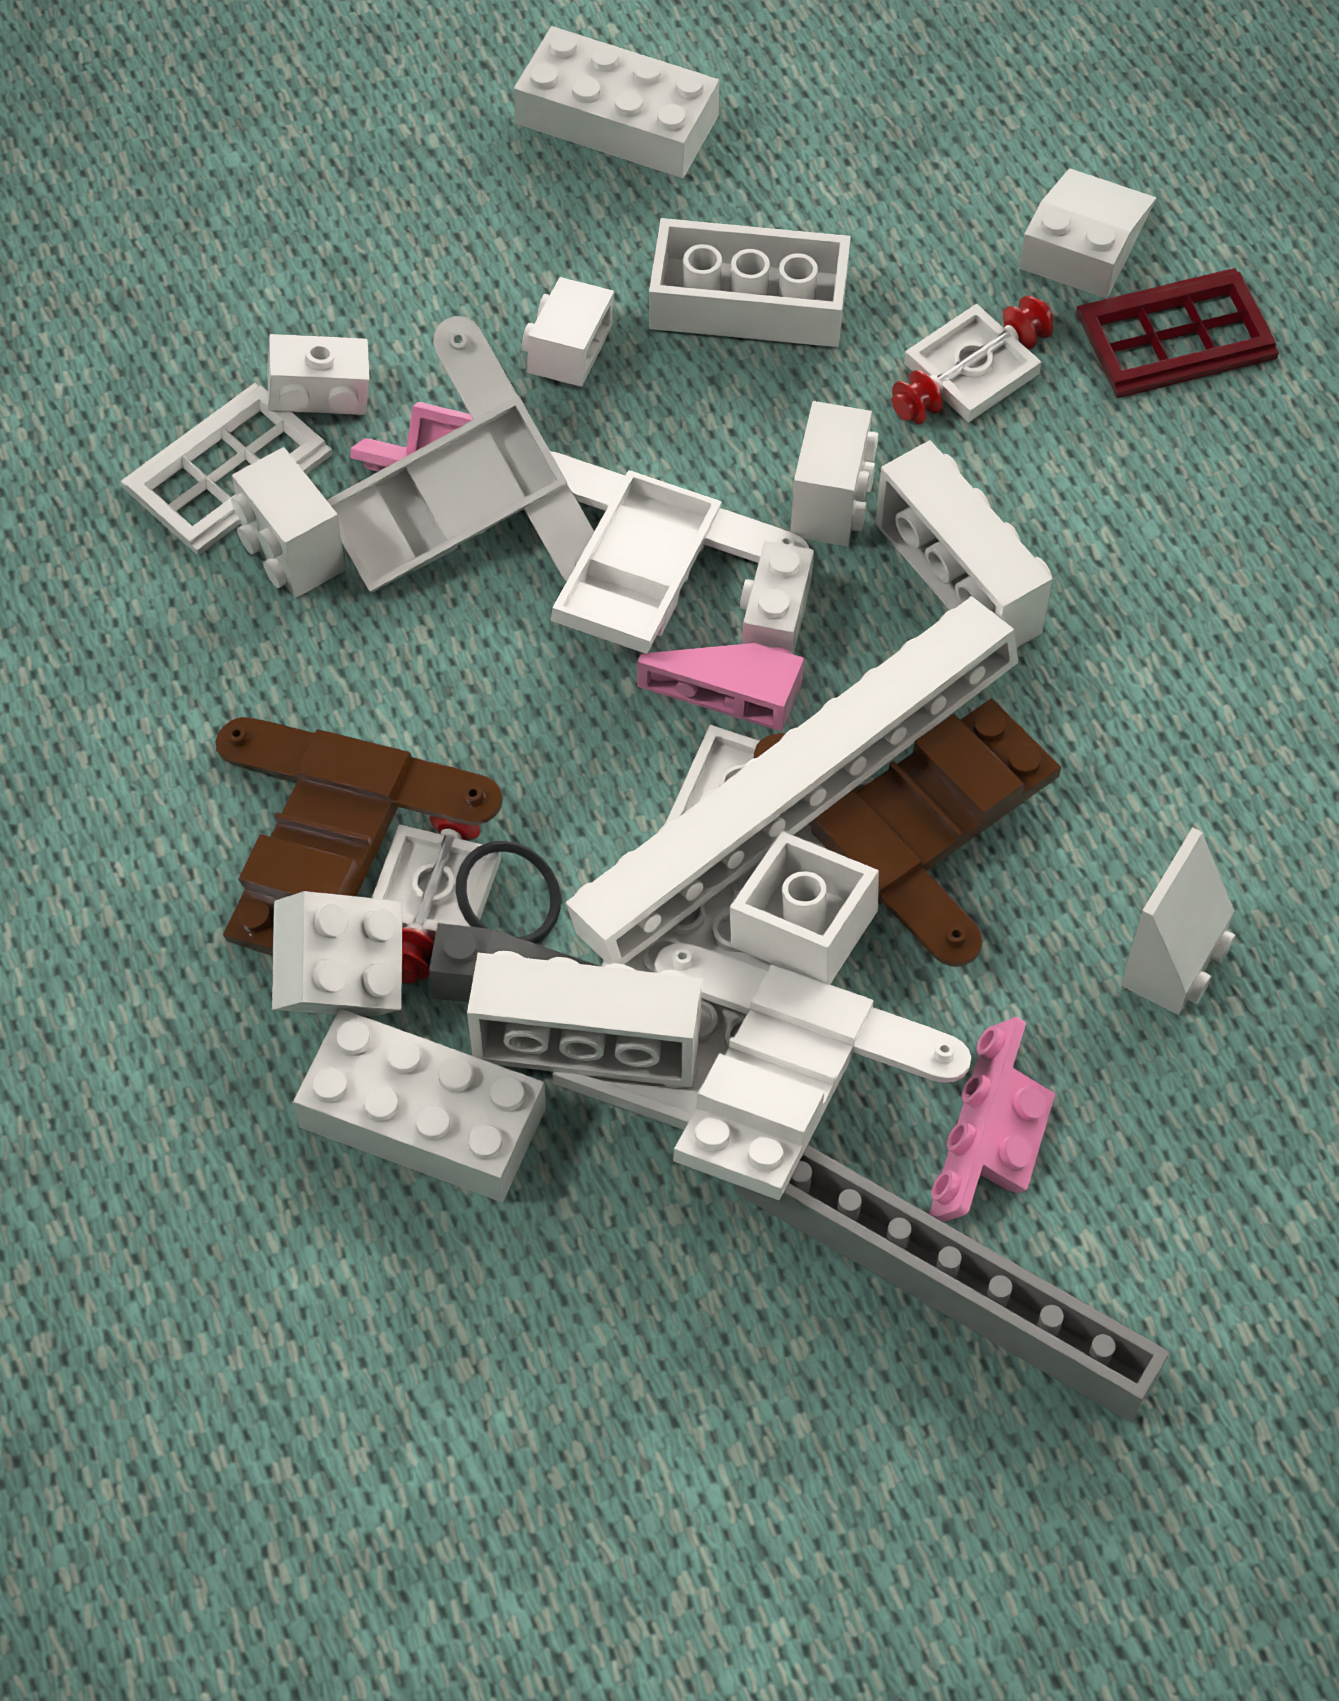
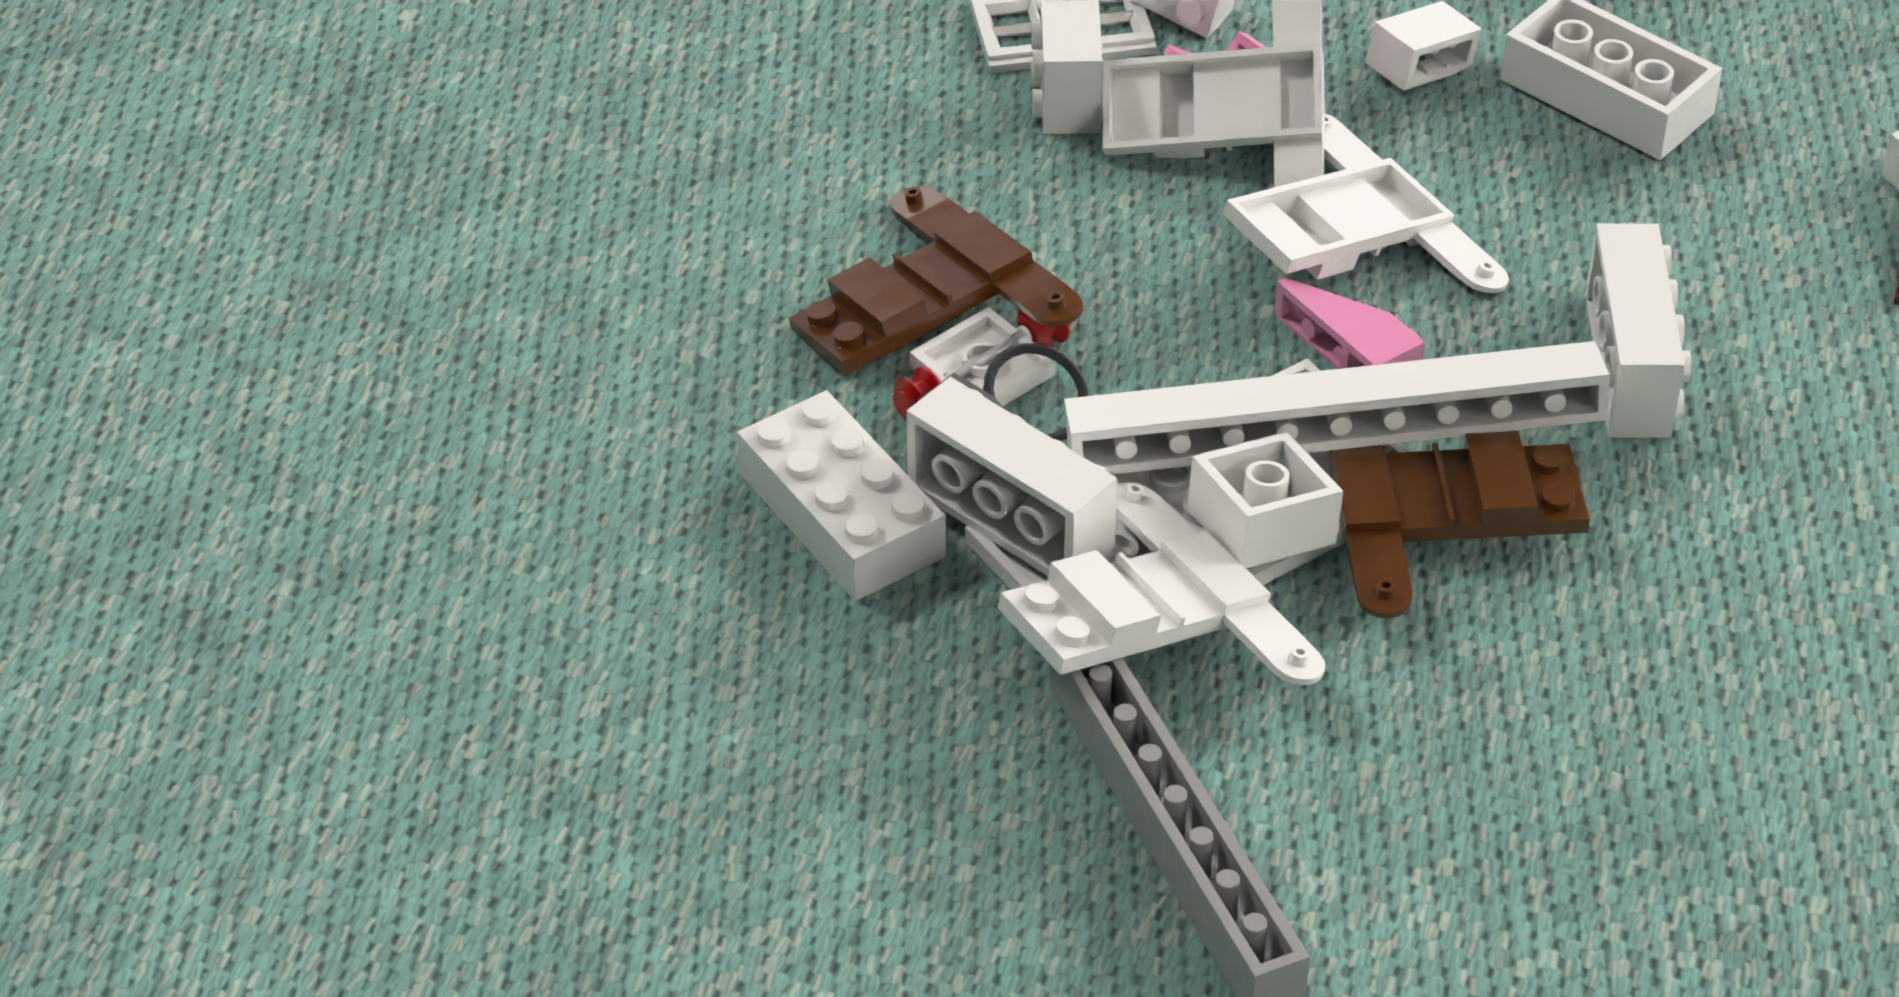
camera: 35 degrees right, 15 degrees down
(337, 954) = (855, 350): white brick -> none
(777, 596) = (1444, 297): white brick -> none
(833, 474) = (1555, 226): white brick -> none
(973, 361) = (1773, 216): white plate -> none
(997, 1125) = (1318, 756): bright pink bracket -> none
(1181, 930) = (1592, 668): white slope -> none

